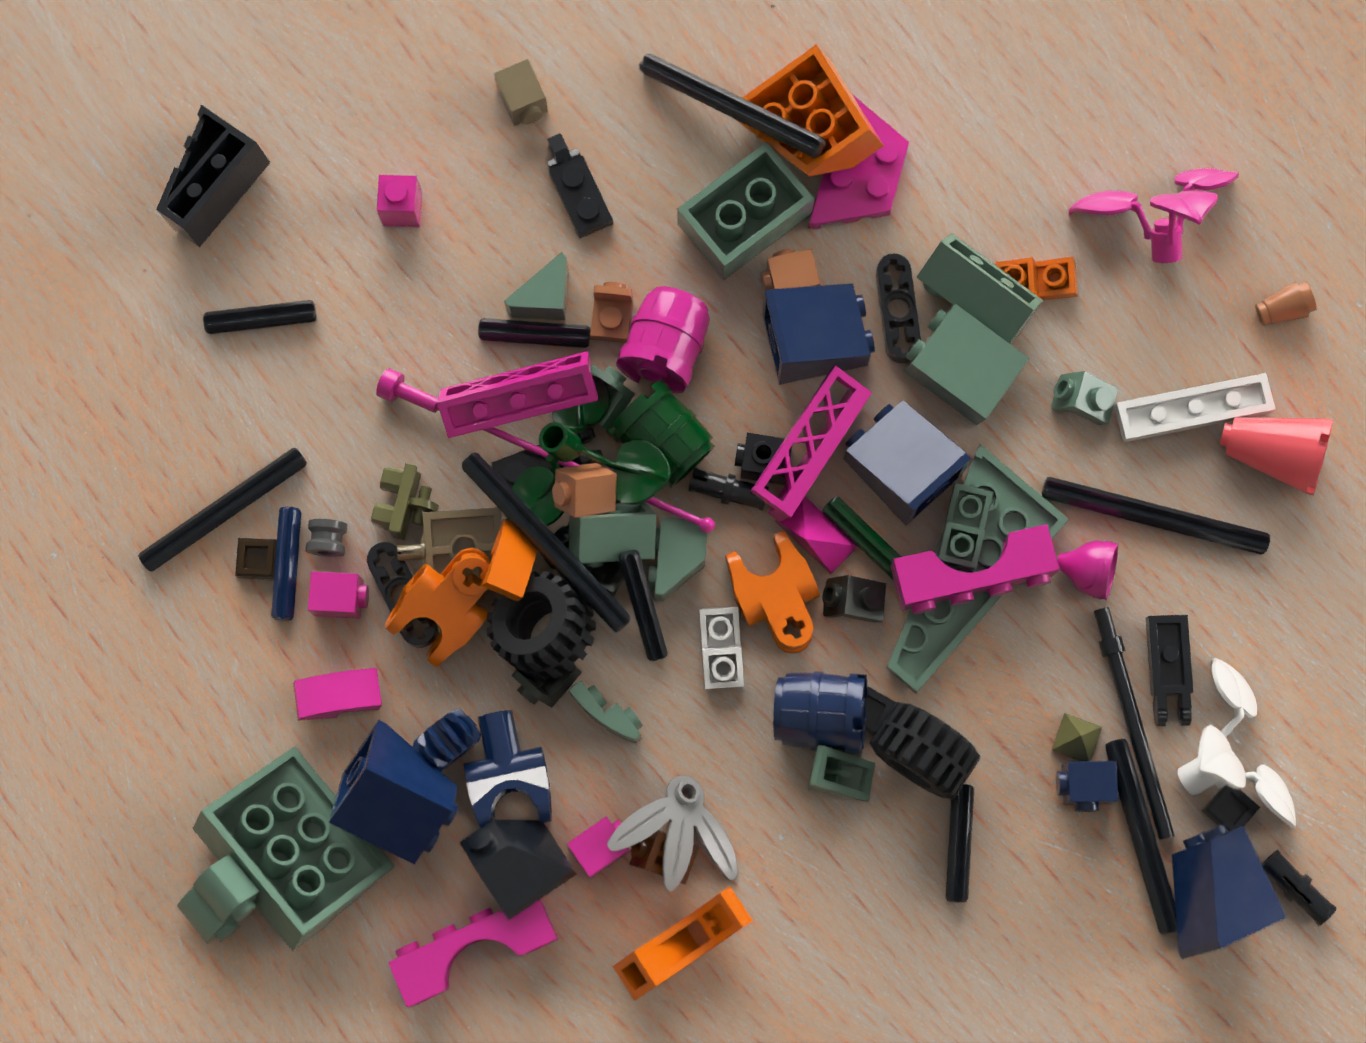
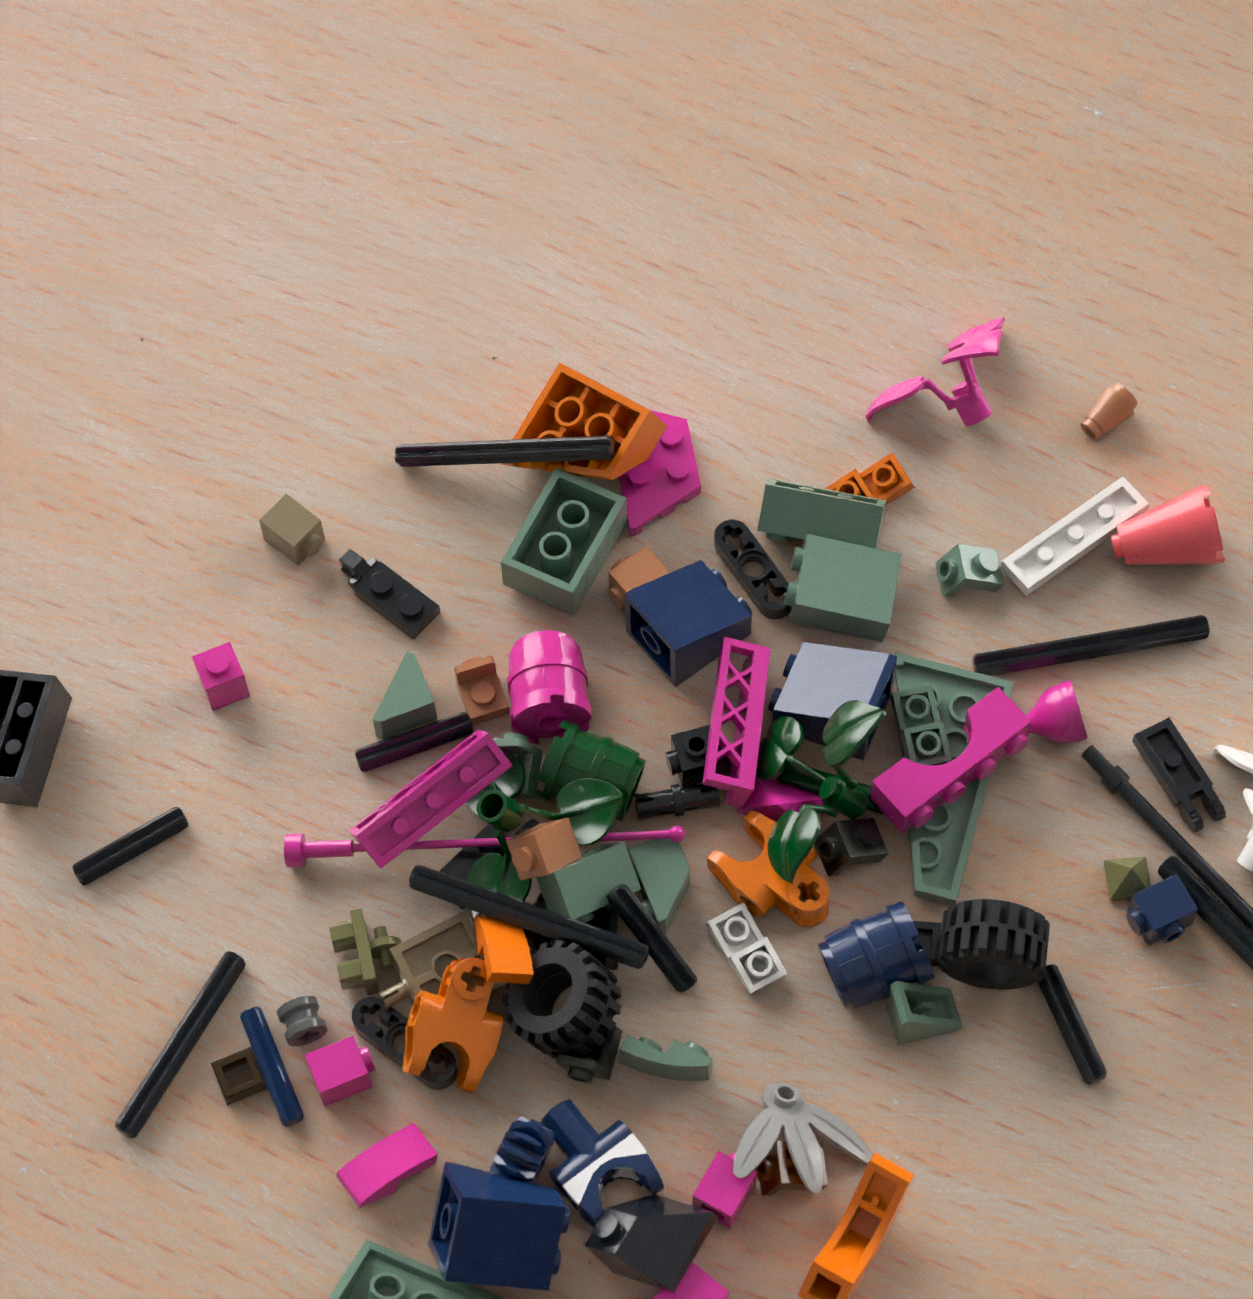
camera: 25 degrees left, 15 degrees down
(883, 516) = (843, 735): none -> dark green plant

